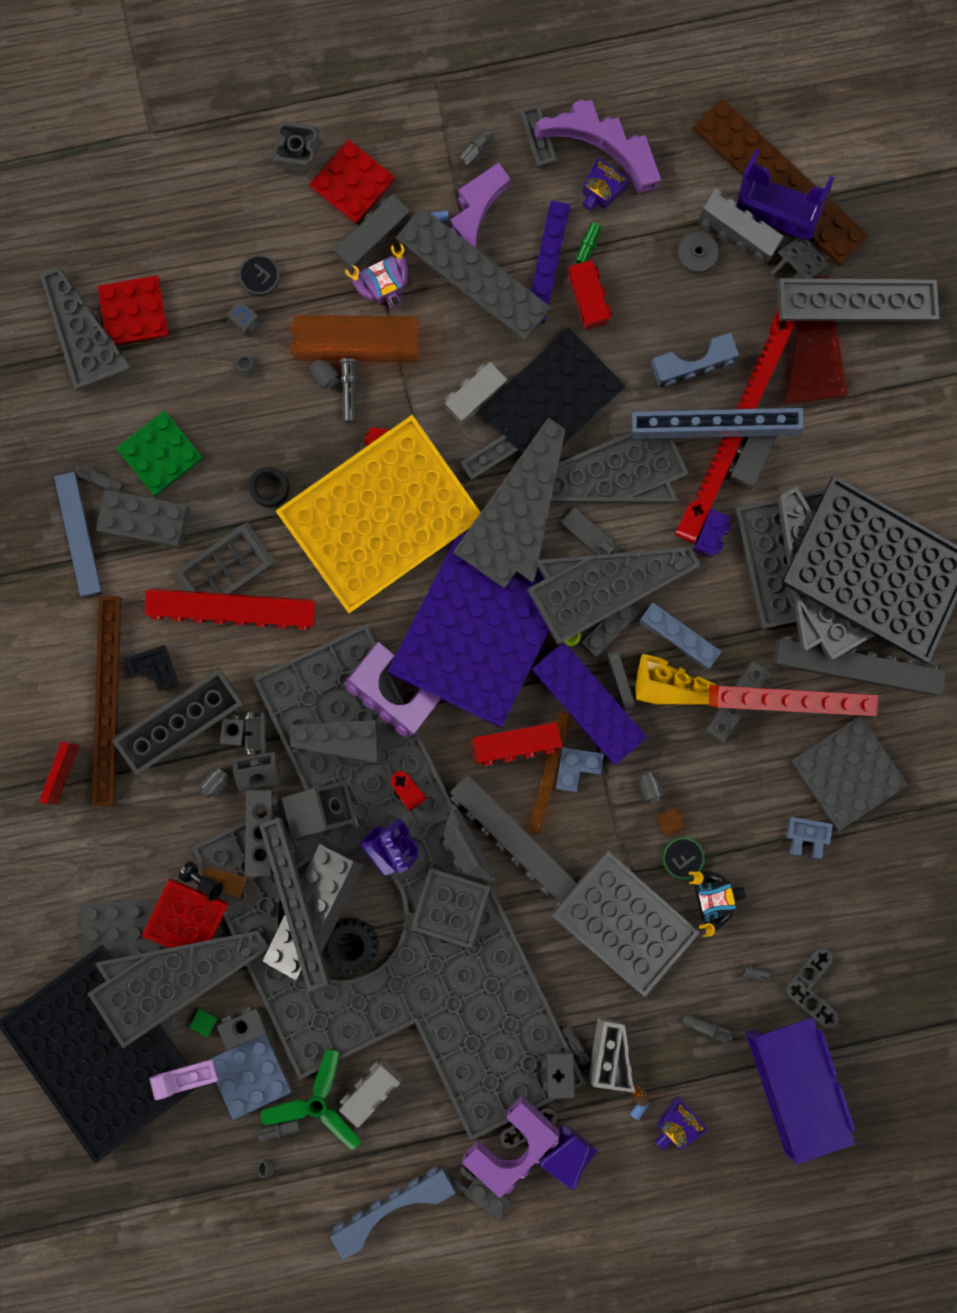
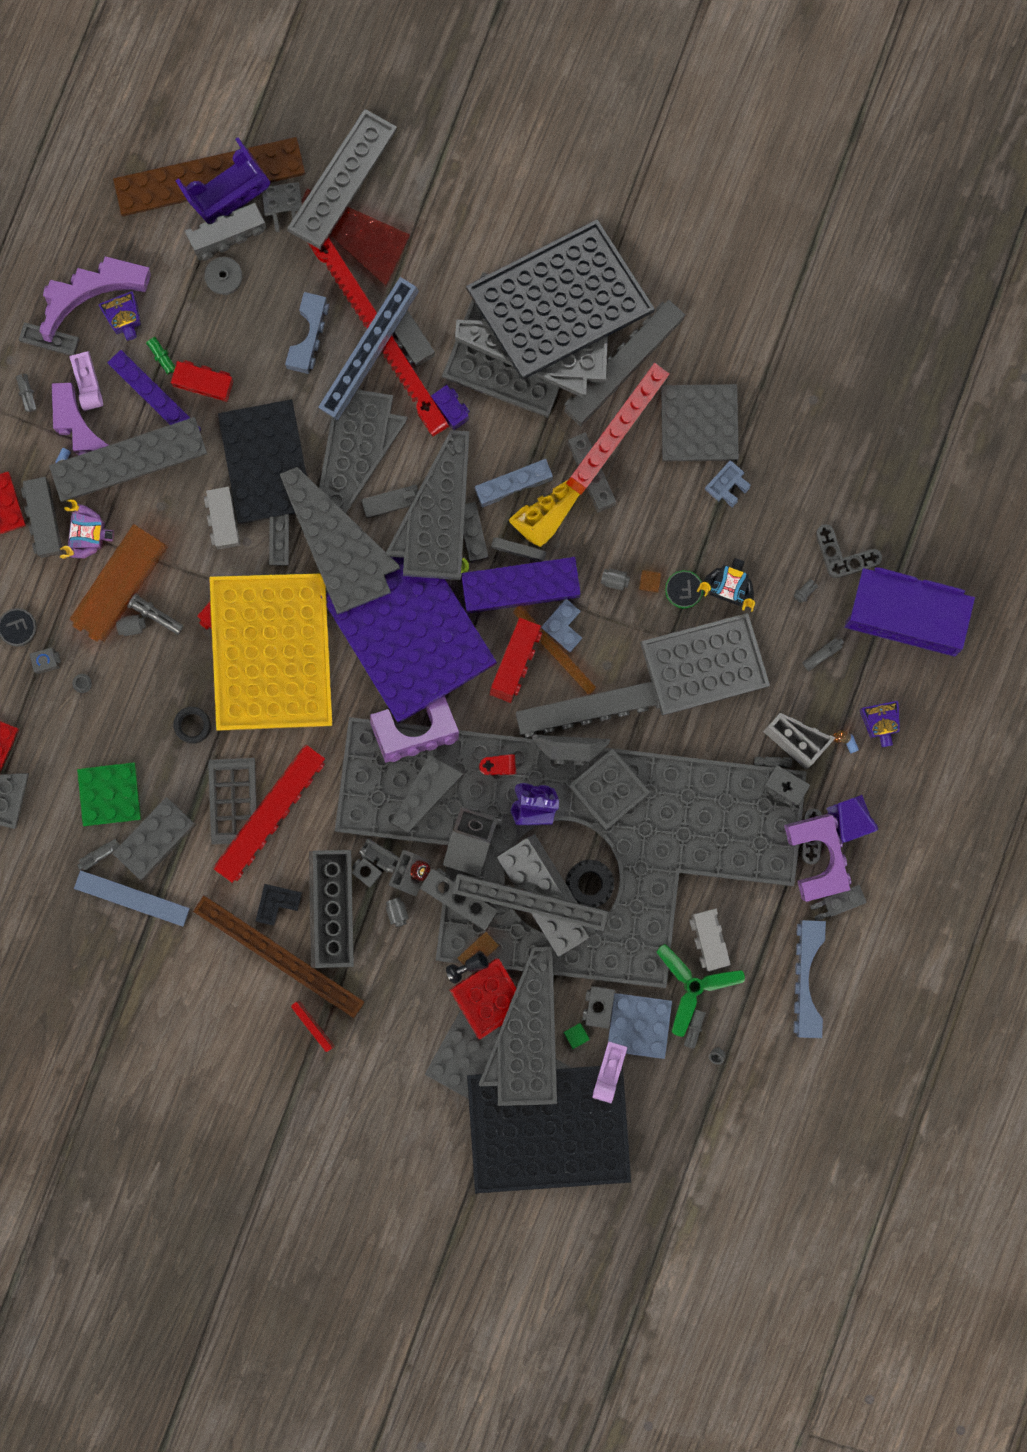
camera: 60 degrees left, 0 degrees up
(263, 780) = (420, 870): none -> tile
(512, 203) = (87, 382): none -> lavender plate

